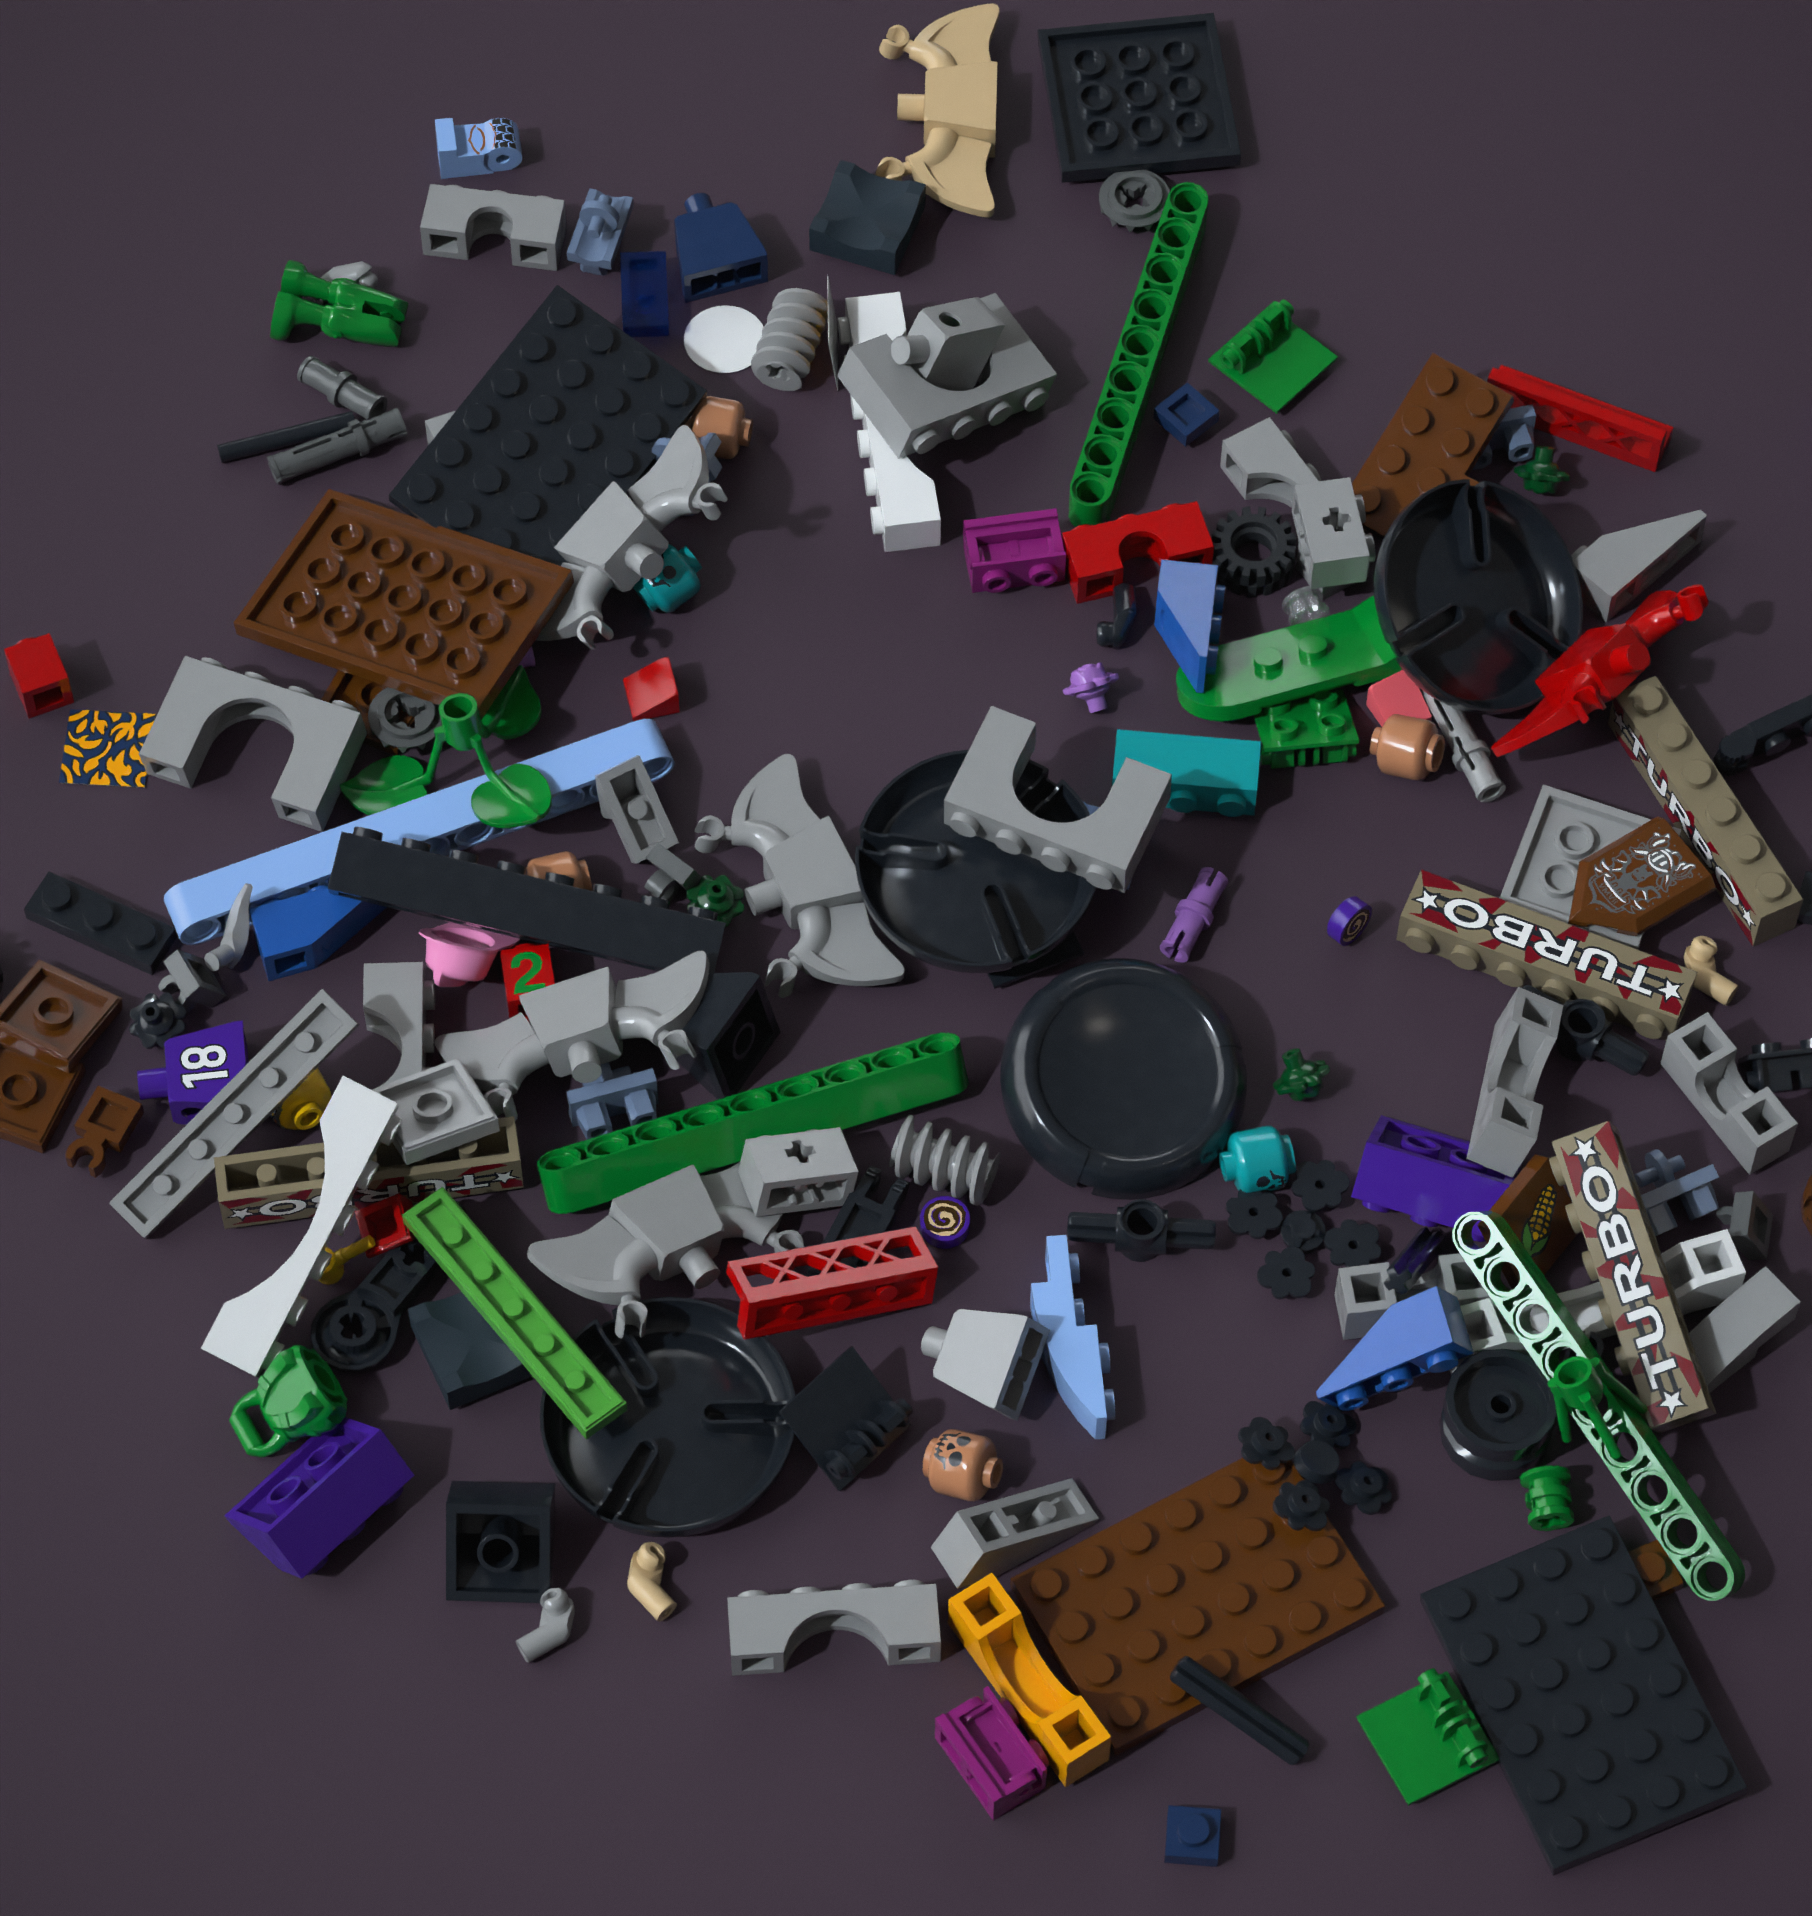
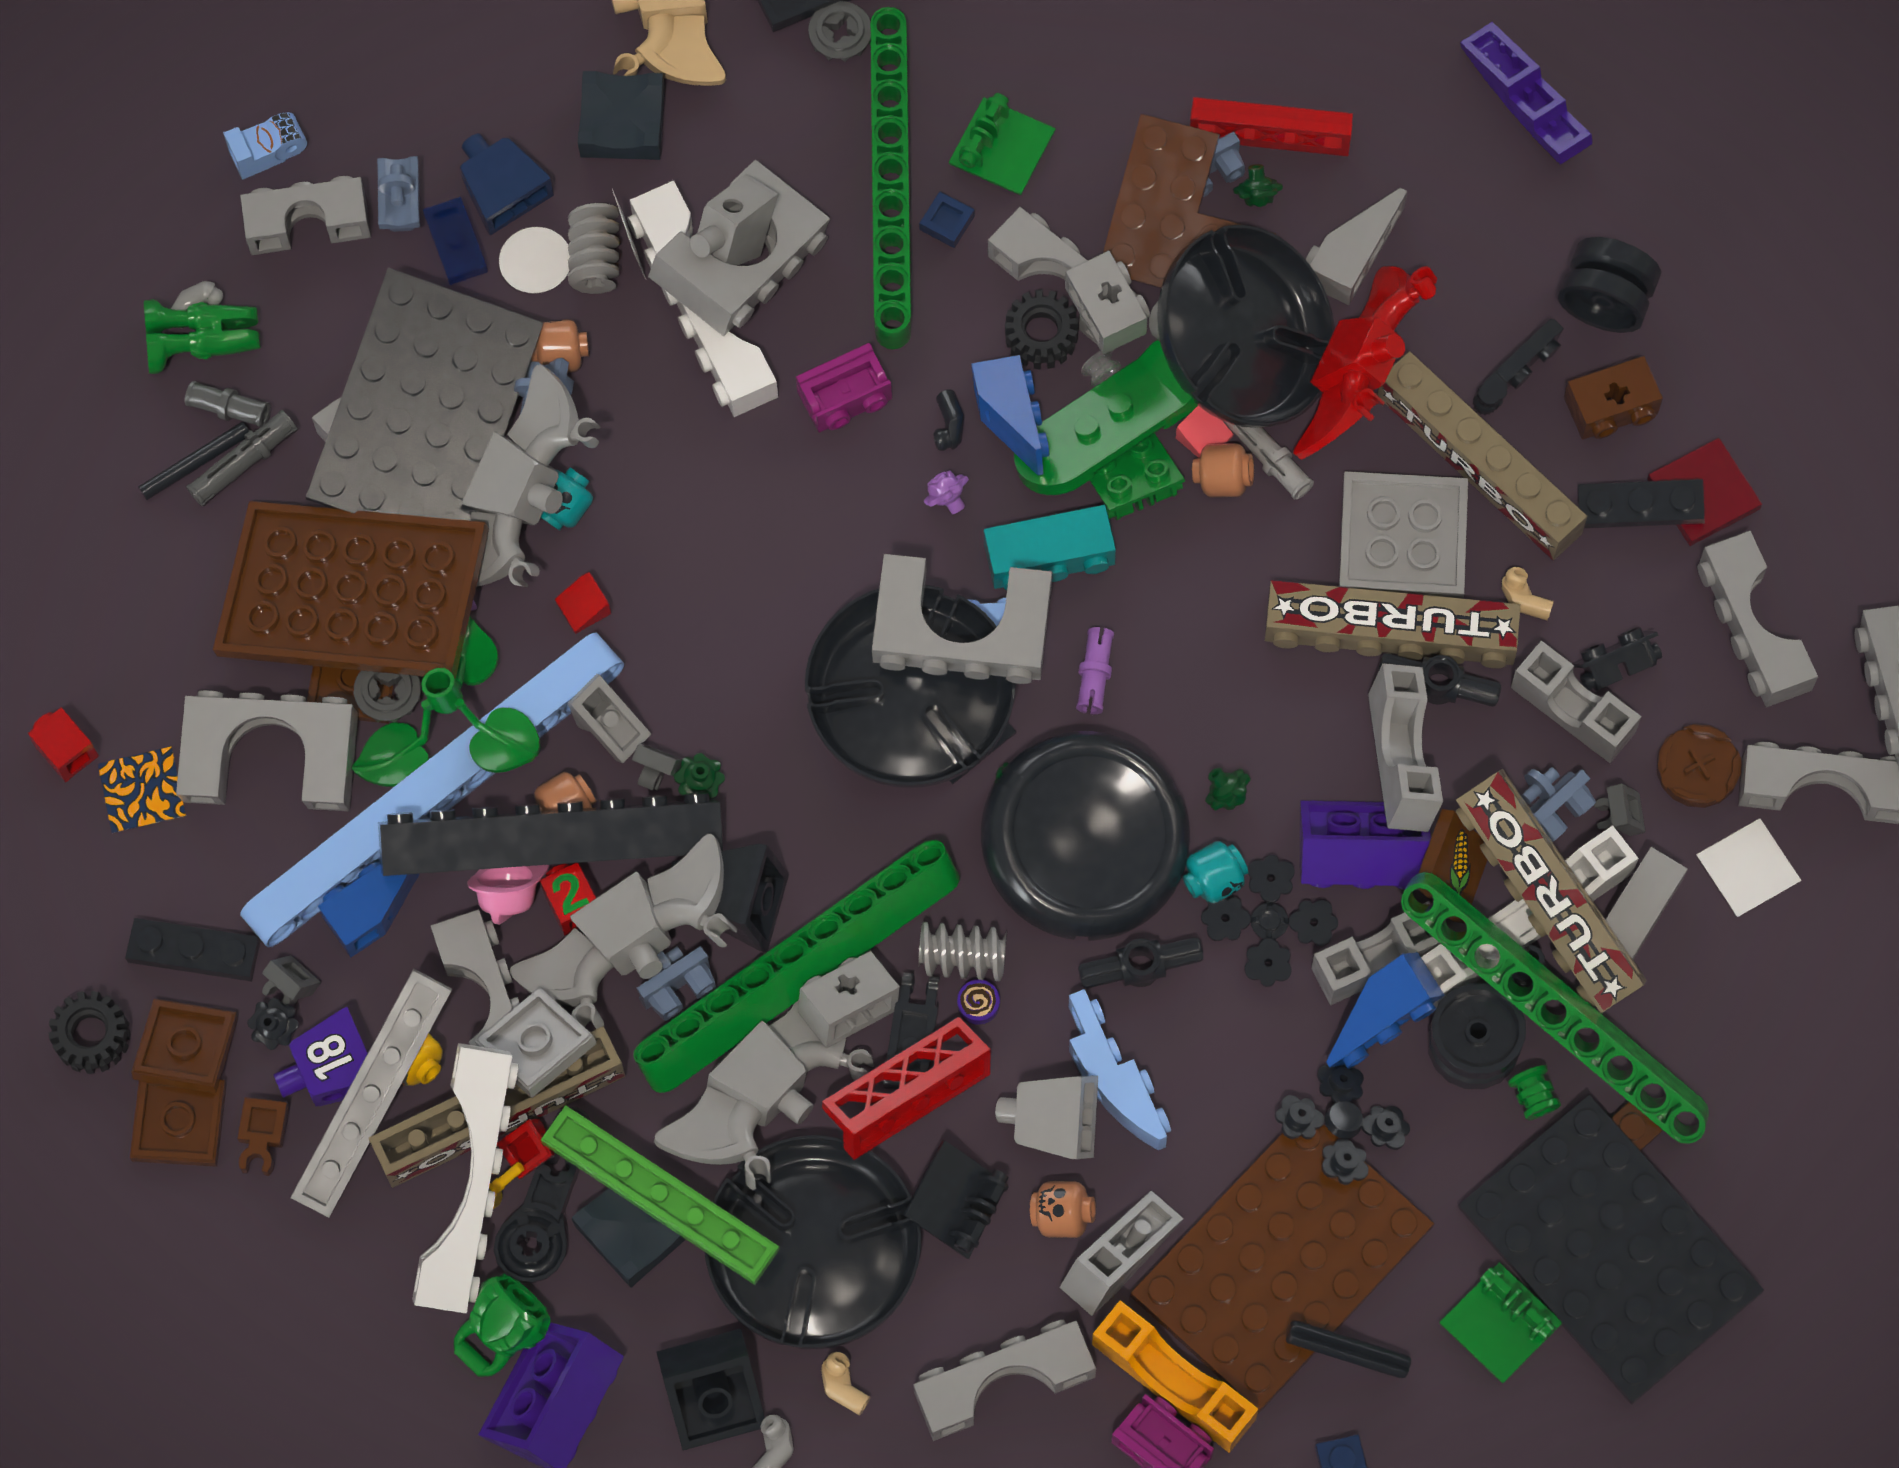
camera: 15 degrees left, 10 degrees up
(235, 934) = (312, 929): light grey bar -> none
(807, 878) = (770, 736): light grey torso -> none
(1098, 551) = (971, 336): red arch -> none
(1349, 920) = (1223, 639): dark purple tile -> none
(1413, 1260) = (1370, 927): black axle -> none
(1580, 1386) = (1543, 1006): green plant -> none
(1638, 881) = (1448, 536): reddish brown tile -> none

